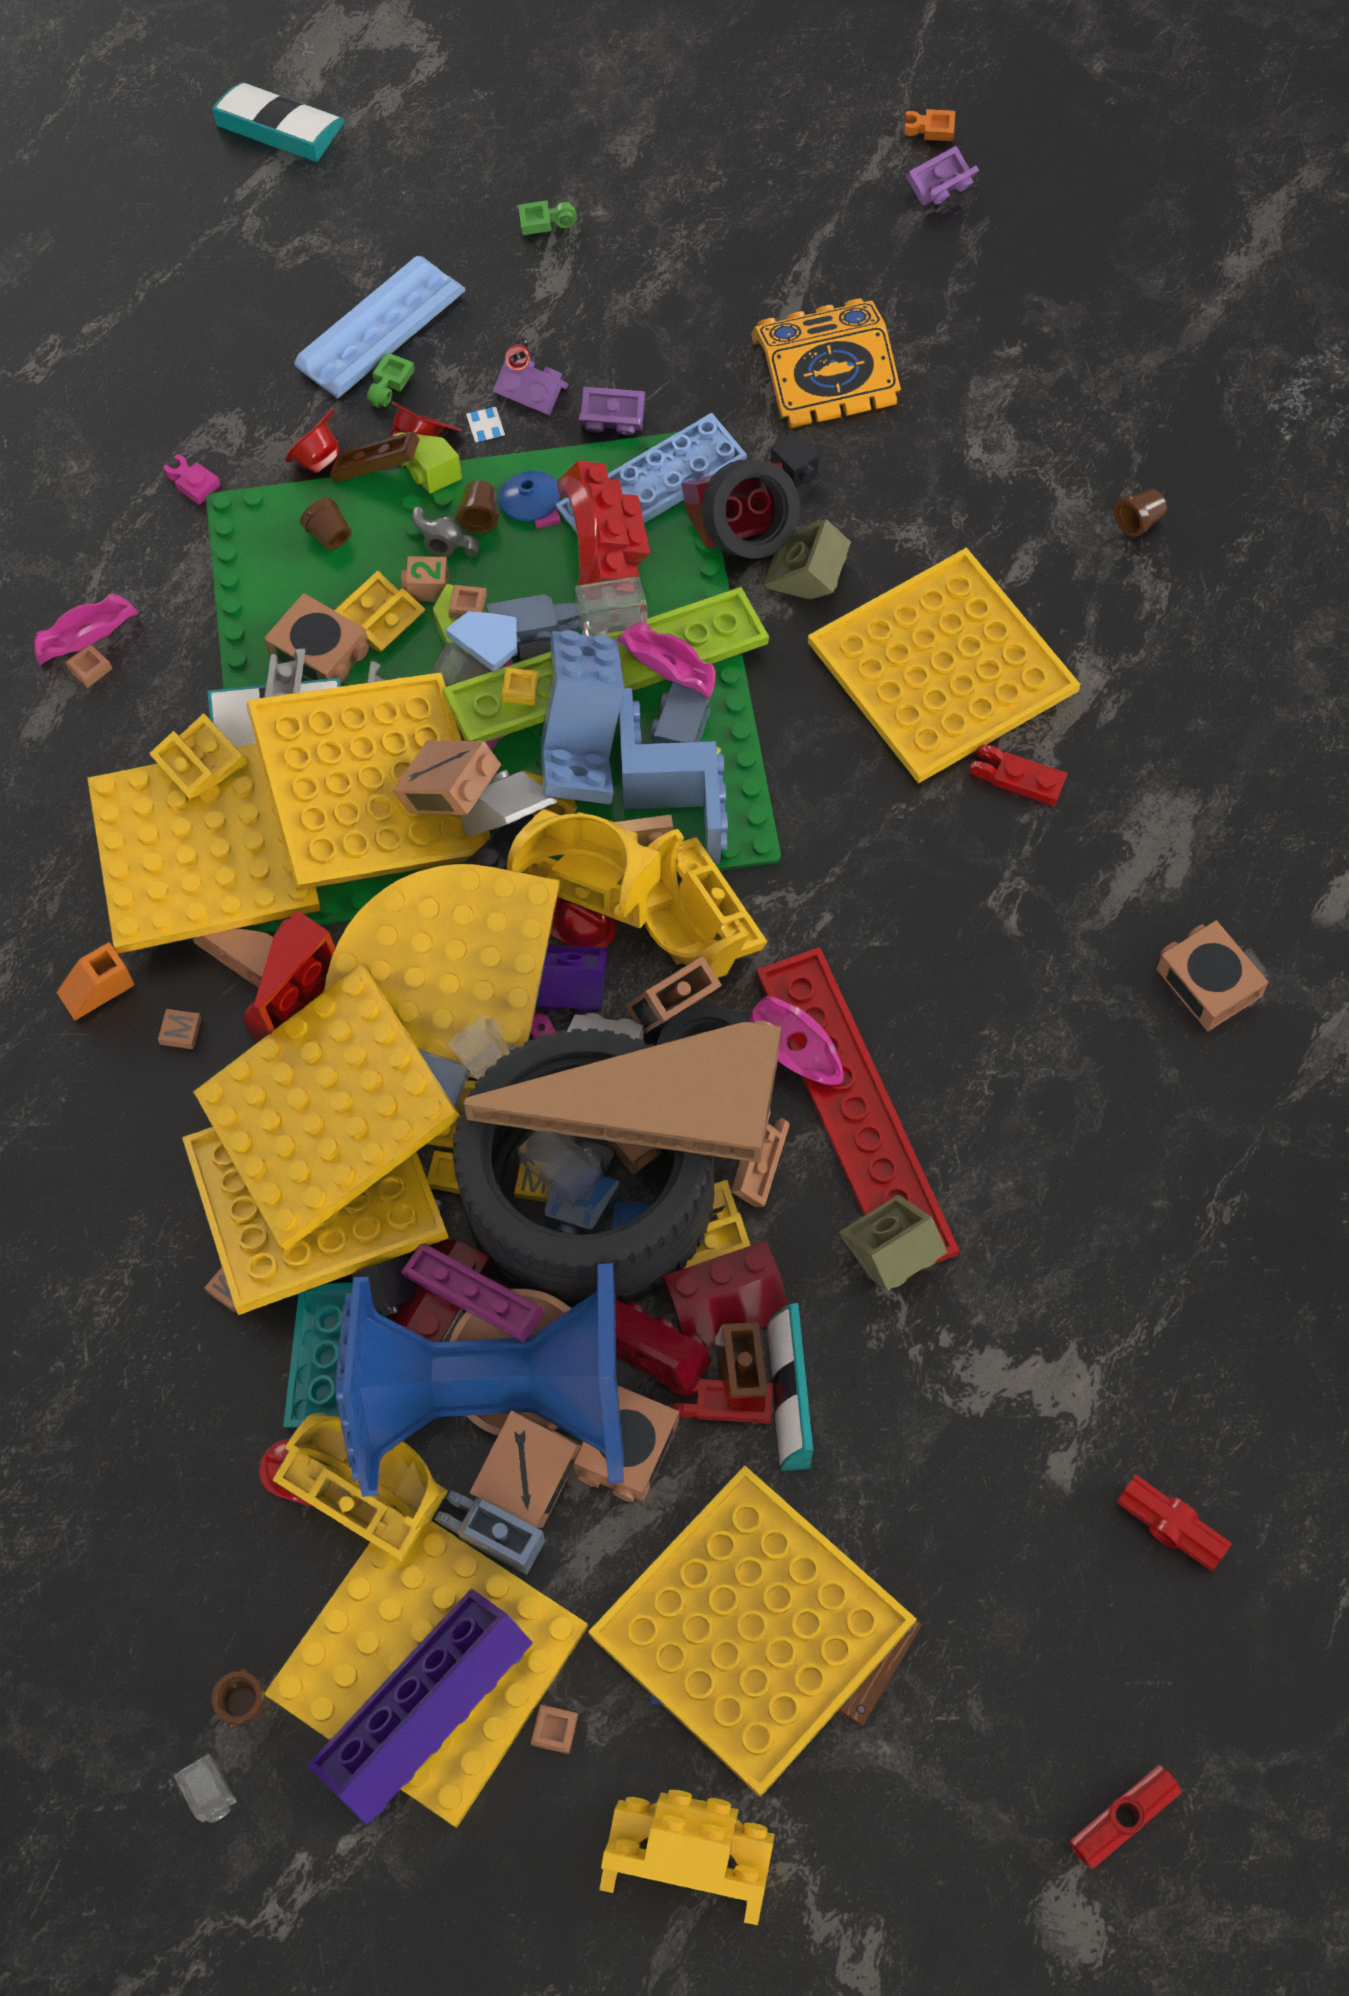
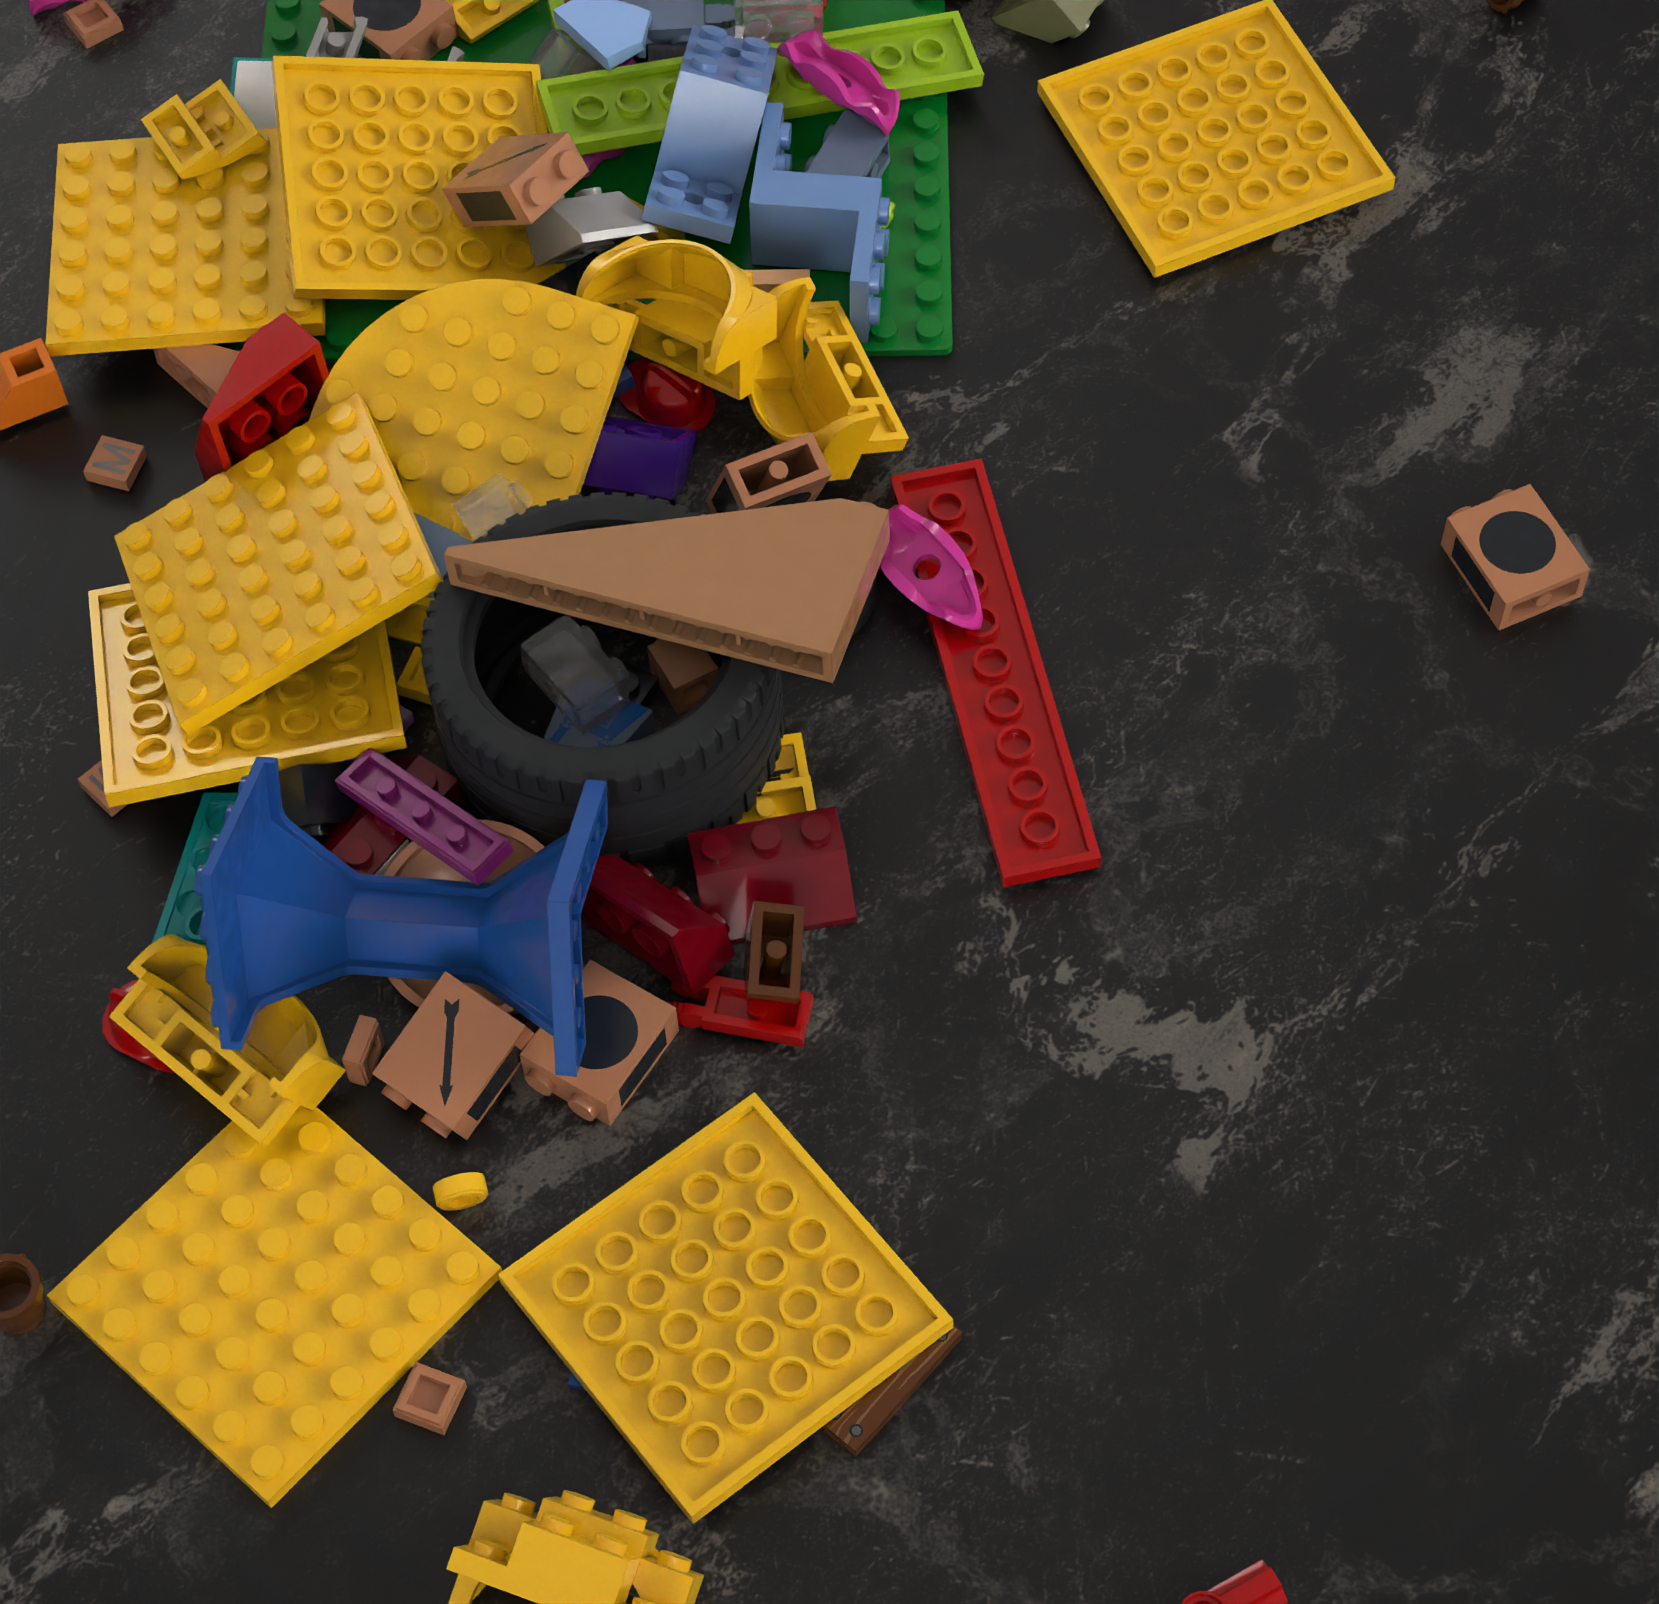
camera: 10 degrees right, 5 degrees down
(420, 1705) = (249, 1333): dark purple slope -> none
(457, 1471) = (363, 1050): none -> nougat tile
(494, 1532) = (397, 1130): sand blue hinge -> none
(519, 686) = (637, 89): yellow tile -> none
(530, 1186) = (533, 707): yellow tile -> none
(548, 1571) = (460, 1191): none -> yellow tile
(754, 1178) = (850, 711): nougat hinge -> none
(789, 1390) = (834, 1003): slope -> none
(894, 1242) = (1012, 832): olive slope -> none
(1019, 775) = (1293, 282): red hinge -> none
(1174, 1523) = (1339, 1247): red piece -> none

